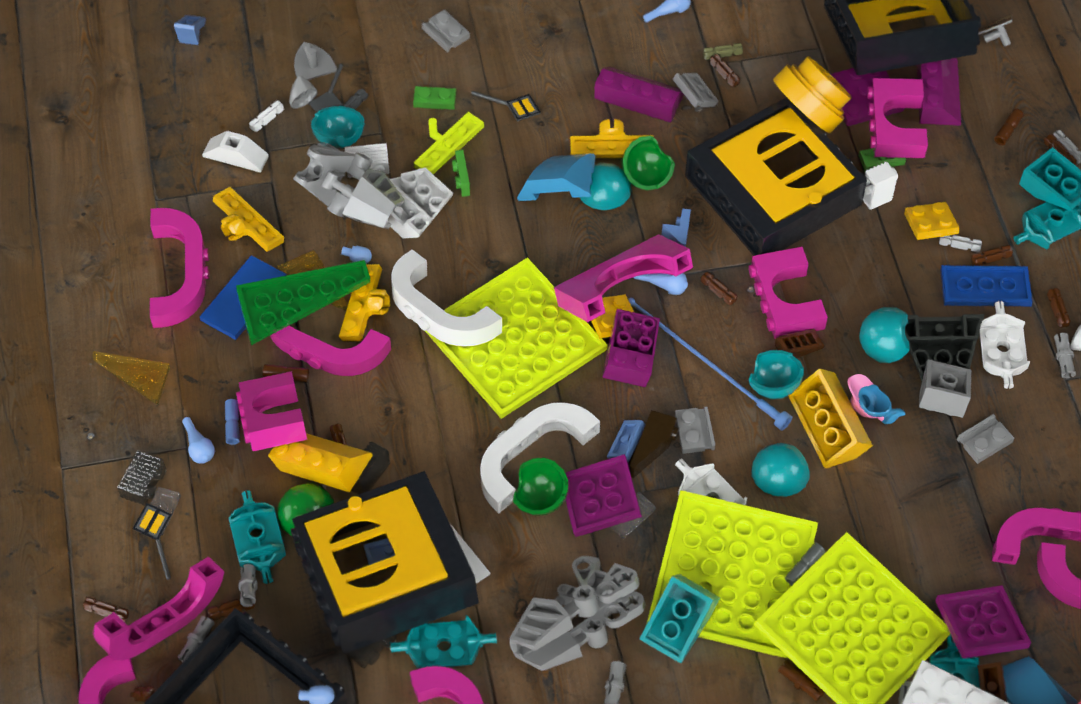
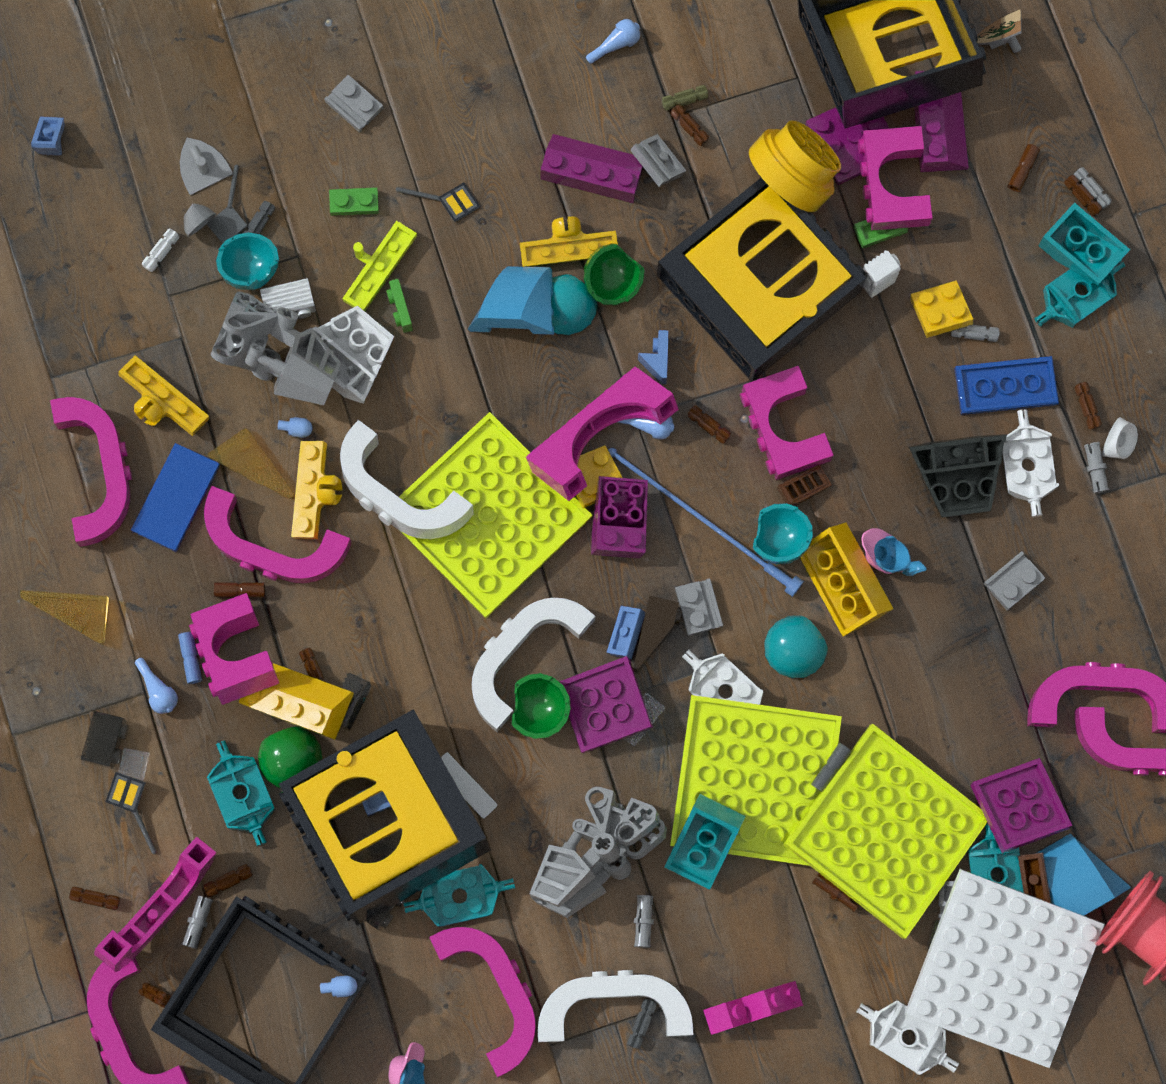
camera: 10 degrees left, 20 degrees up
(236, 150) = (133, 307): white slope -> none
(248, 585) = (242, 855): light grey pin -> none
(286, 299) = (227, 506): green wing -> none
(884, 334) = (897, 469): teal cylinder -> none
(945, 388) = (968, 527): light grey slope -> none
(991, 255) = (1011, 345): reddish brown axle -> none

